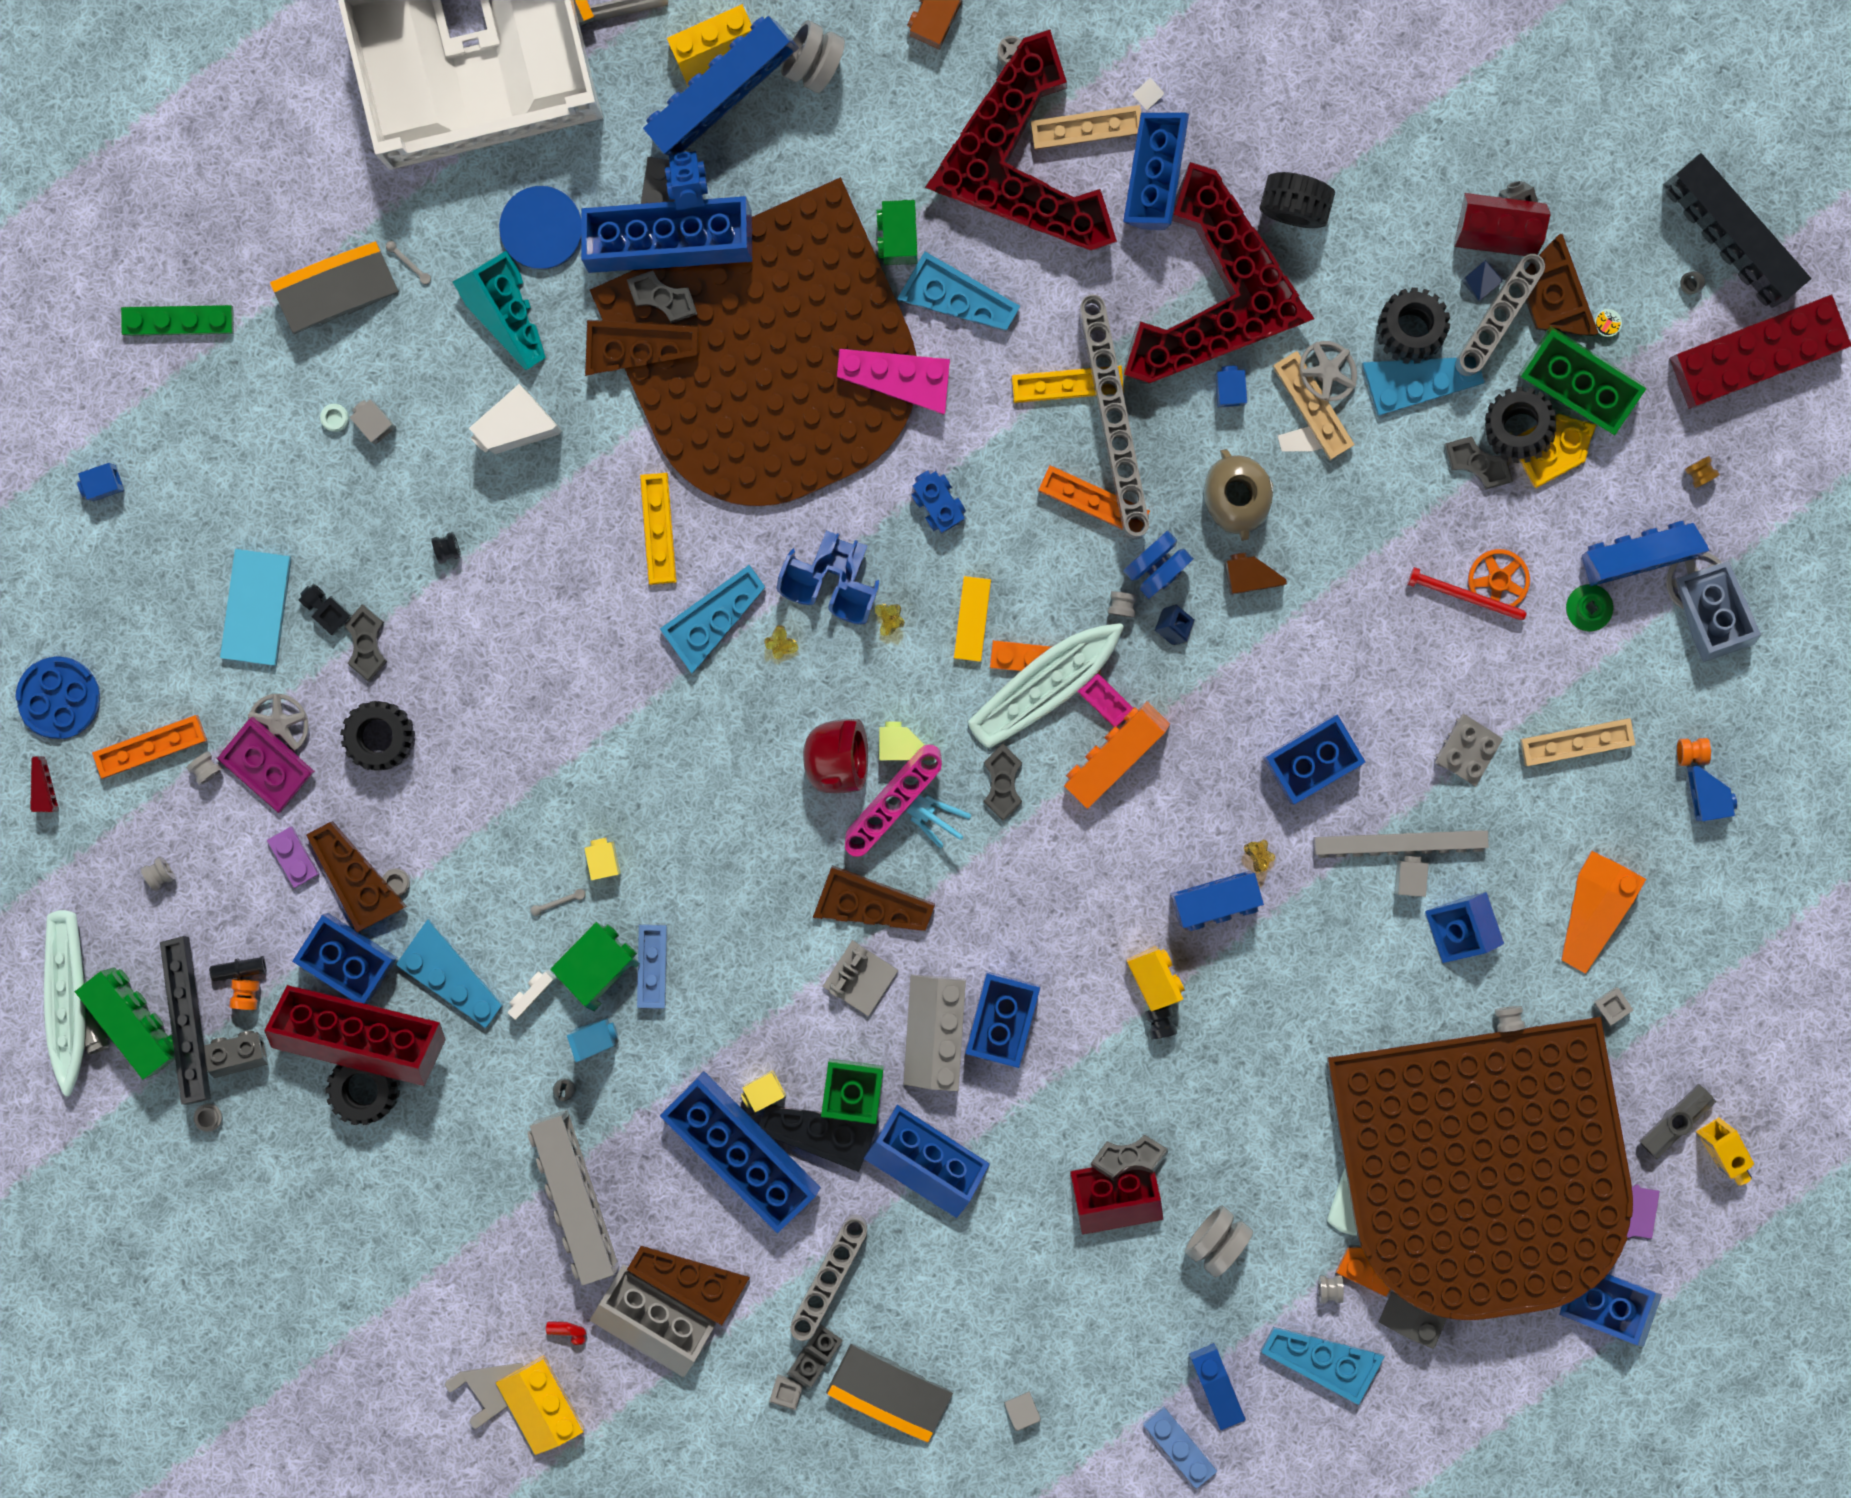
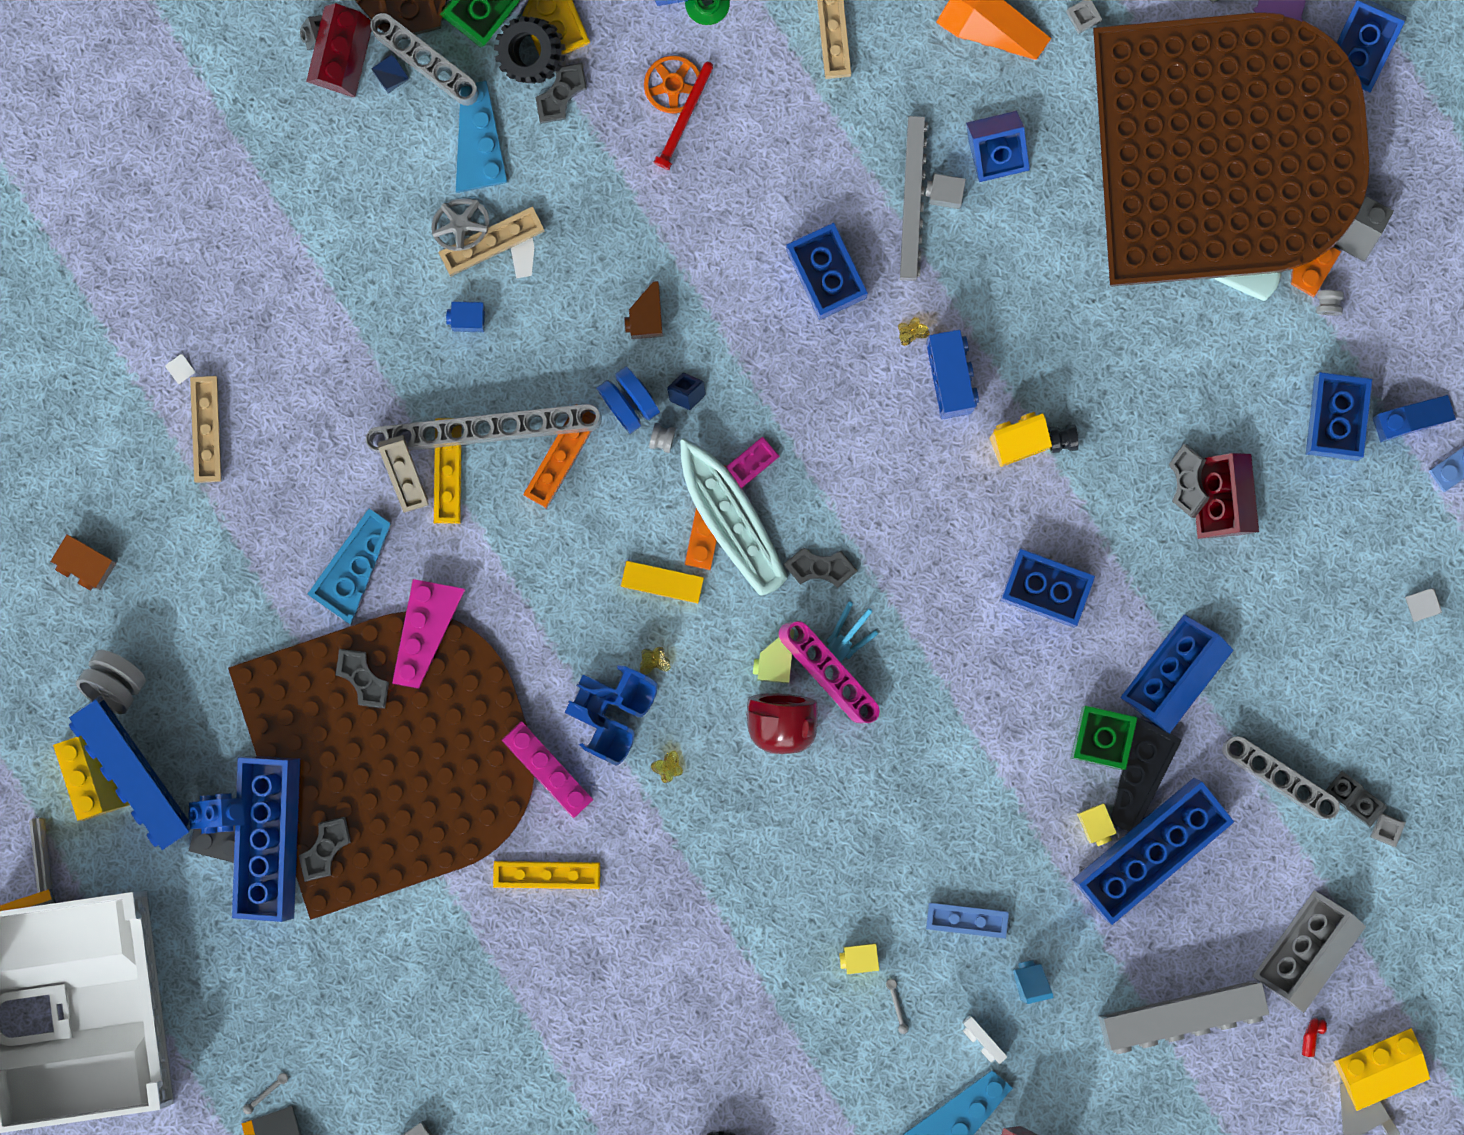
camera: 85 degrees left, 5 degrees down
(446, 547) = (545, 1082): black wheel -> none
(496, 300) = (310, 1011): teal wedge -> none
(513, 423) = (432, 1003): white slope -> none
(540, 227) = (245, 961): blue tile -> none
(569, 1092) = (1081, 1012): dark grey hinge -> none
(594, 964) = (960, 975): green panel -> none
(630, 344) = (367, 881): reddish brown wing -> none
(696, 1284) = (1277, 907): reddish brown wing -> none
(707, 621) = (640, 835): dark azure wing -> none
(765, 518) = (547, 769): none -> dark pink plate
(852, 307) = (370, 689): none -> dark grey tile
(860, 899) = (922, 709): reddish brown wing -> none
(860, 978) = (996, 721): light grey hinge -> none
(889, 1392) = (1396, 730): dark grey slope -> none
(899, 237) = (287, 615): green brick -> none
(933, 494) = (541, 606): blue brick -> none
(934, 1032) = (1054, 654): light grey slope -> none
(978, 165) = (234, 535): dark red wedge -> none
(1011, 44) = (122, 491): light grey wheel -> none
(1058, 337) = (403, 473): none -> plate
(1117, 754) = (805, 456): orange wedge -> none
(1156, 170) = (254, 366): blue slope -> none
(1211, 1308) = (1338, 416): none -> blue brick
(1218, 1241) = (1275, 402): light grey wheel -> none
(1250, 473) = (564, 298): dark tan piece -> none
(1260, 294) = (383, 281): dark red wedge -> none
(1297, 200) = (296, 237): black tyre -> none
(1328, 1363) = (1401, 308): dark azure wing -> none
(1415, 304) = (411, 127): black tyre -> none
(1468, 749) = (830, 127): light grey hinge -> none
(1509, 1018) = (1087, 112): light grey wheel -> none

